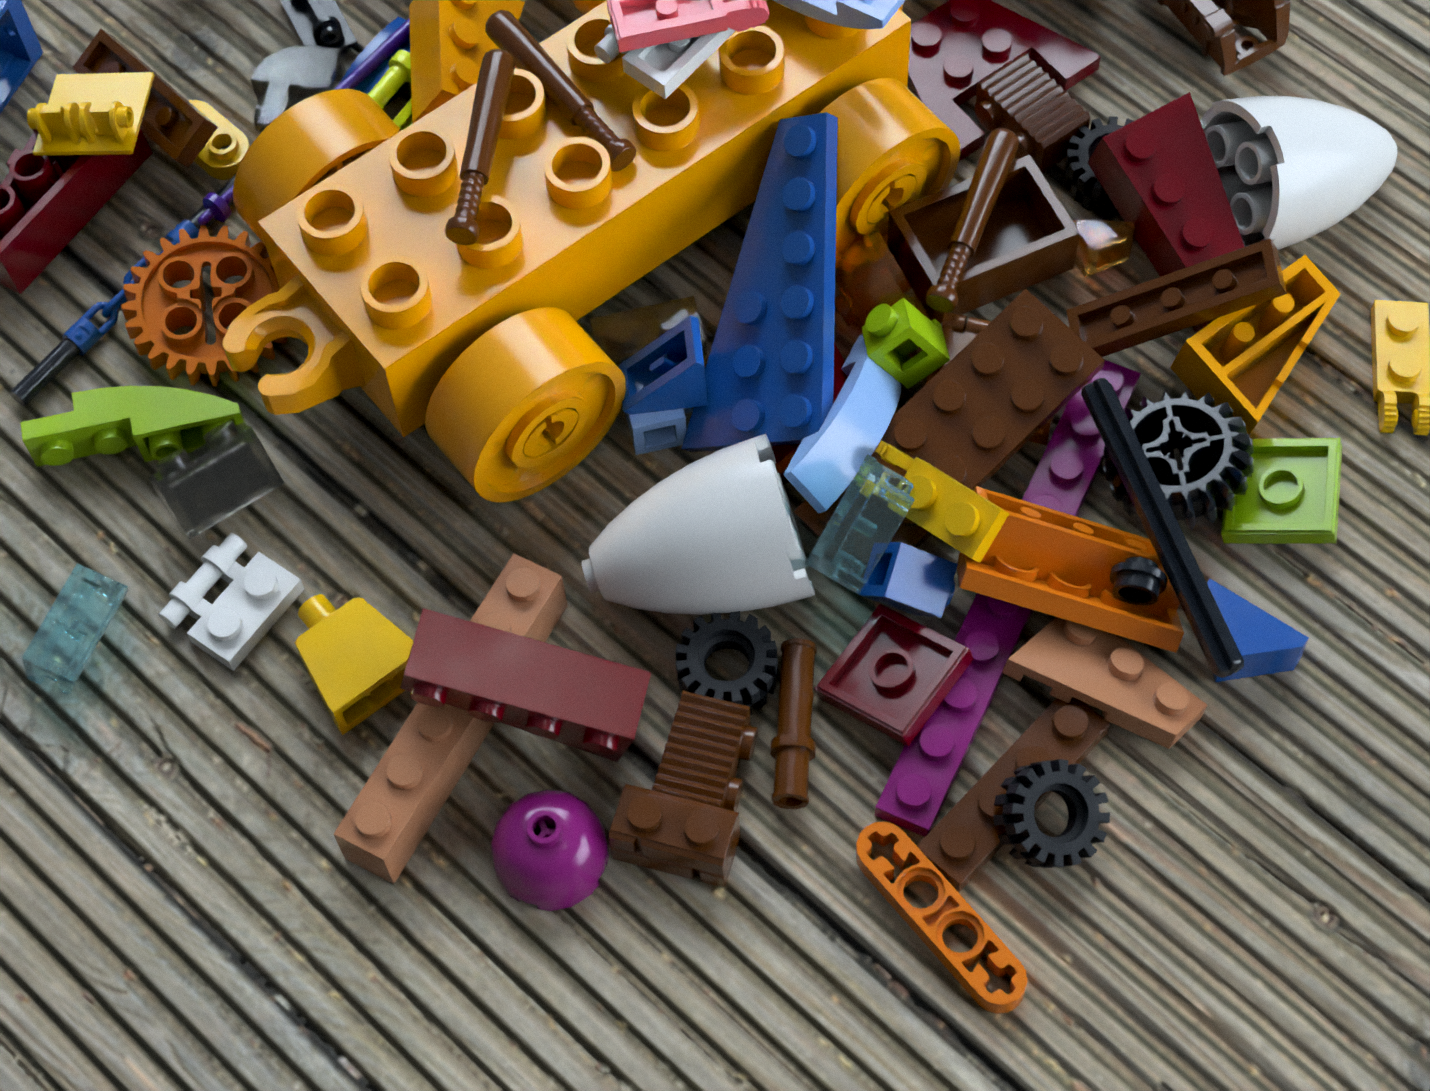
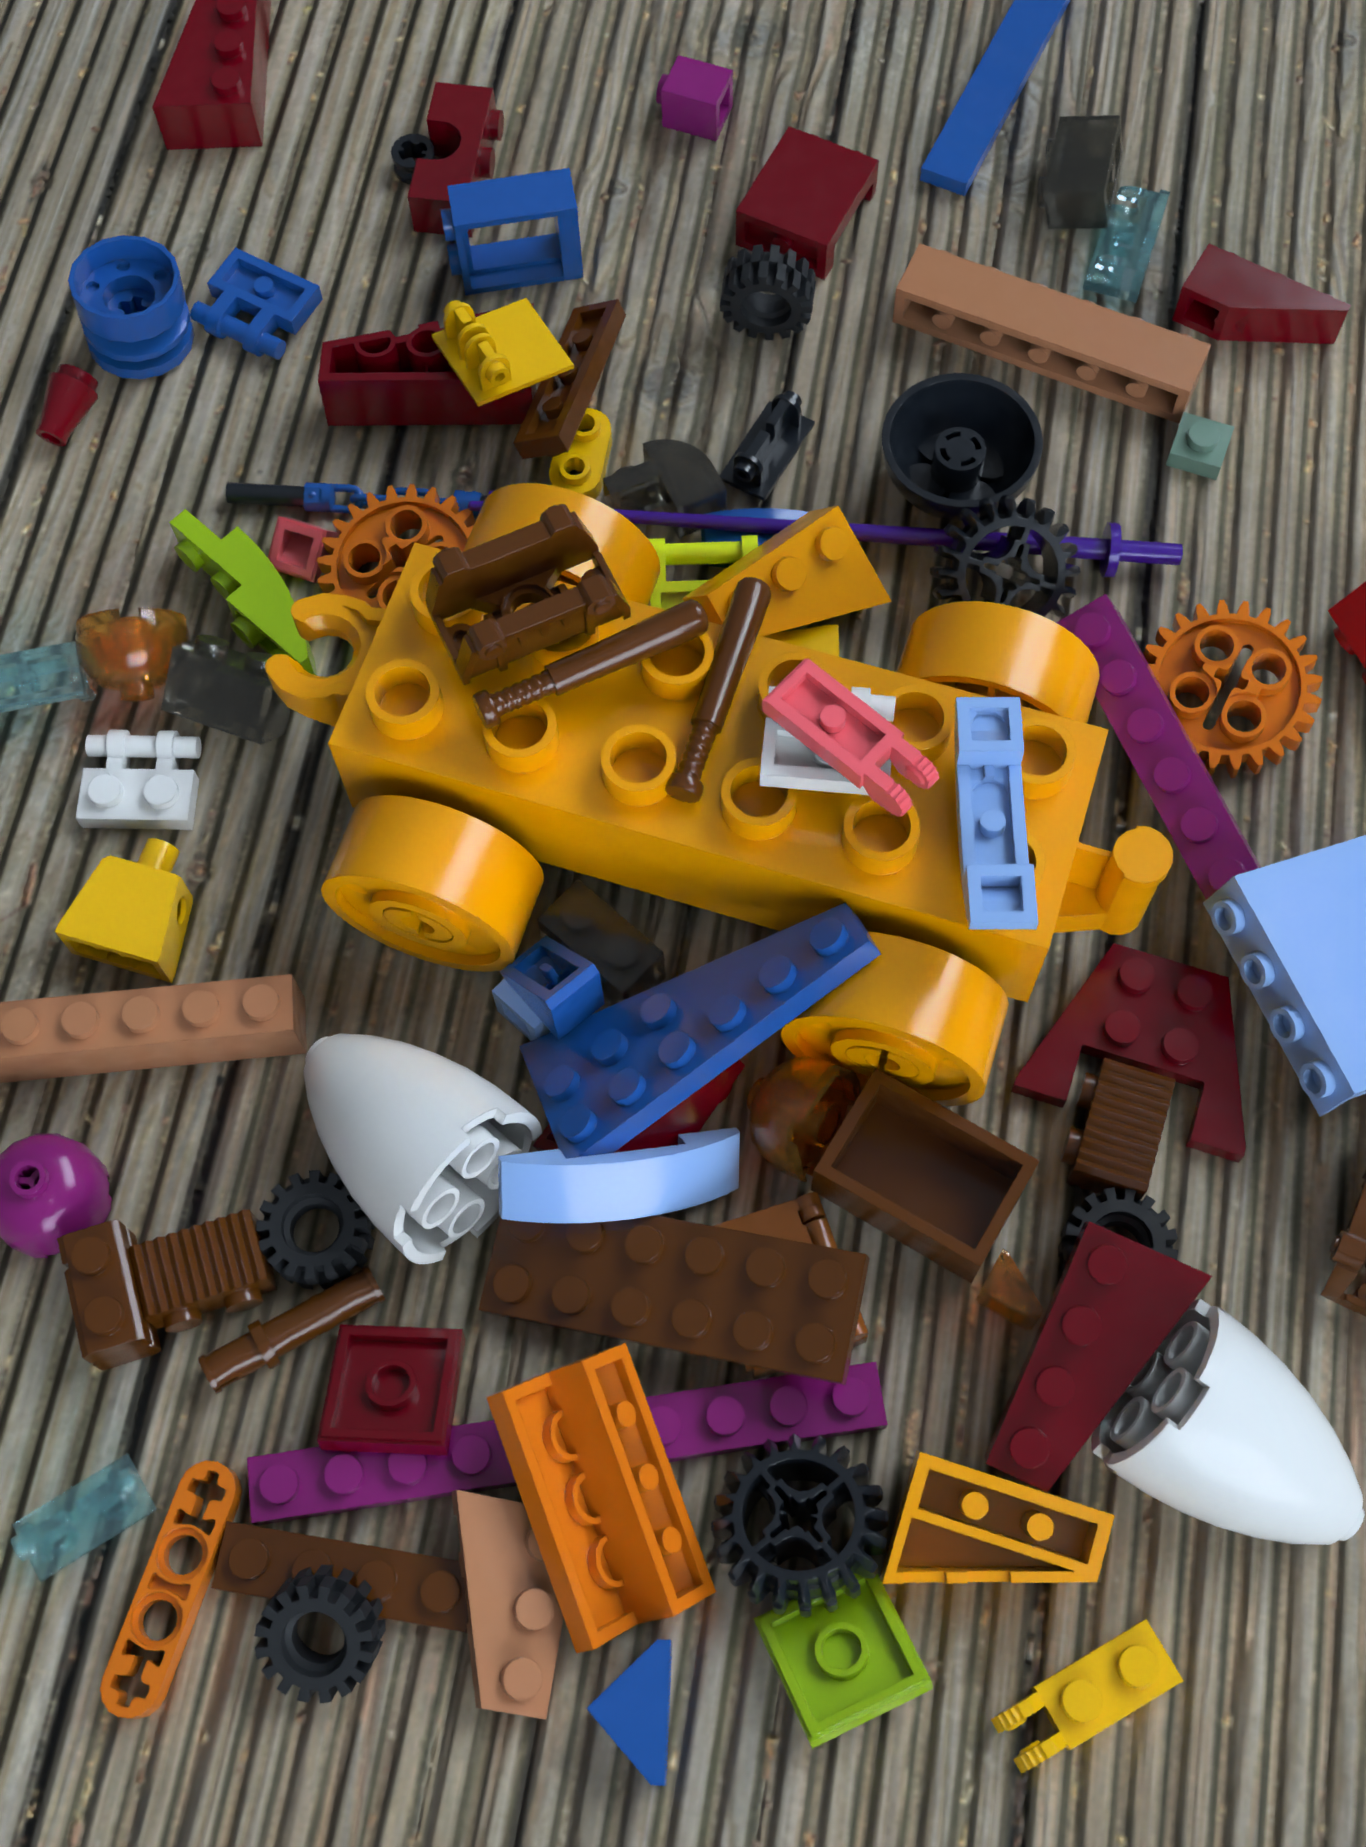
camera: 55 degrees right, 5 degrees up
(117, 368) = (297, 547): none -> coral slope
(121, 529) = (130, 651): none -> clear orange cylinder
(370, 147) = (517, 572): none -> reddish brown piece
(526, 684) = (140, 1071): dark red wedge -> none
(839, 952) = (82, 1518): none -> clear light blue hinge
(862, 525) = (497, 1261): clear light blue hinge -> none
(898, 331) = (741, 1176): lime brick -> none
(912, 581) = (490, 1341): blue brick -> none
(947, 506) = (565, 1314): yellow hinge -> none
(975, 212) = (938, 1147): reddish brown piece -> none
(1138, 581) = (617, 1568): black plate -> none
(1162, 529) = (686, 1559): black axle -> none
(1180, 299) = (965, 1417): reddish brown plate -> none

